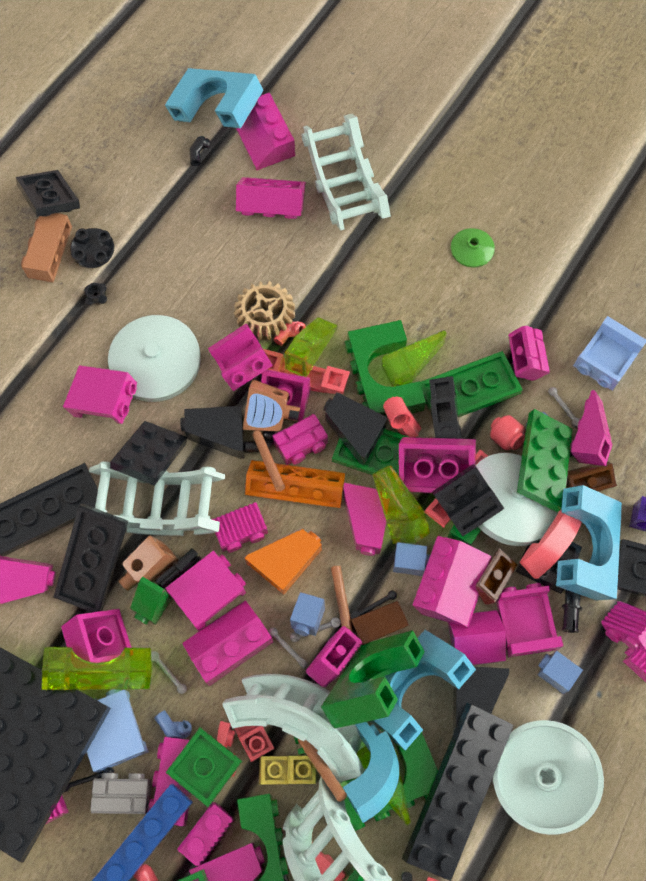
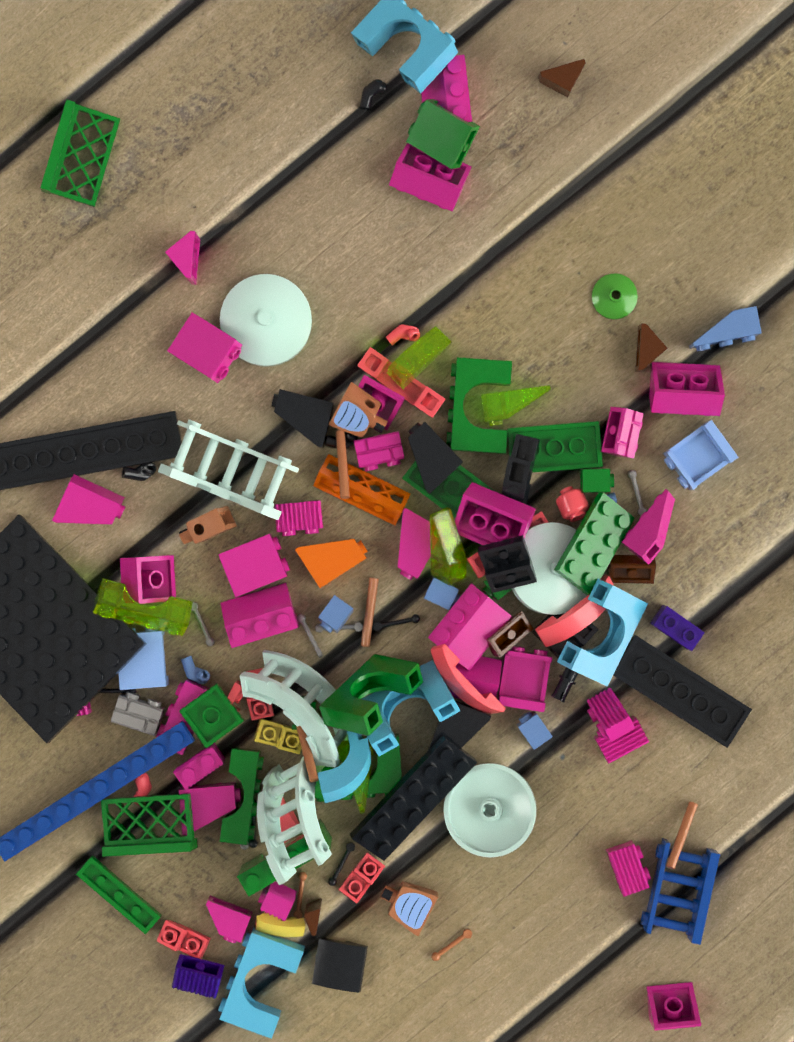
camera: 15 degrees right, 20 degrees up
(46, 247) = (189, 164): nougat brick -> none
(47, 193) = (204, 105): black plate -> none
(60, 318) = (186, 255): none -> dark pink slope
(61, 536) = (140, 473): none -> black arm
(90, 558) = (159, 508): black tile -> none
(92, 247) = (234, 178): black dish -> none
(92, 289) = (225, 226): black plate -> none
(148, 453) = (236, 422): black plate -> none
(149, 602) = (201, 561): green slope -> none
(178, 568) = (234, 537): black axle -> none
(240, 357) = (346, 354): dark pink panel -> none
(268, 303) = (396, 303): tan gear -> none
(270, 154) = (442, 134): none -> green panel
(334, 657) = (346, 659): dark pink brick -> none
(359, 93) = (562, 77): none -> reddish brown slope
(372, 192) = (533, 179): light aqua fence -> none
(379, 622) = (396, 640): reddish brown slope -> none
(401, 417) = (477, 463): coral piece -> none
(442, 624) = (445, 662): none -> coral slope
(520, 275) = (648, 347): none -> reddish brown slope
(520, 403) = (596, 480): none -> green brick
(572, 301) = (686, 389): none -> dark pink slope
(593, 236) = (737, 325): none -> medium blue slope

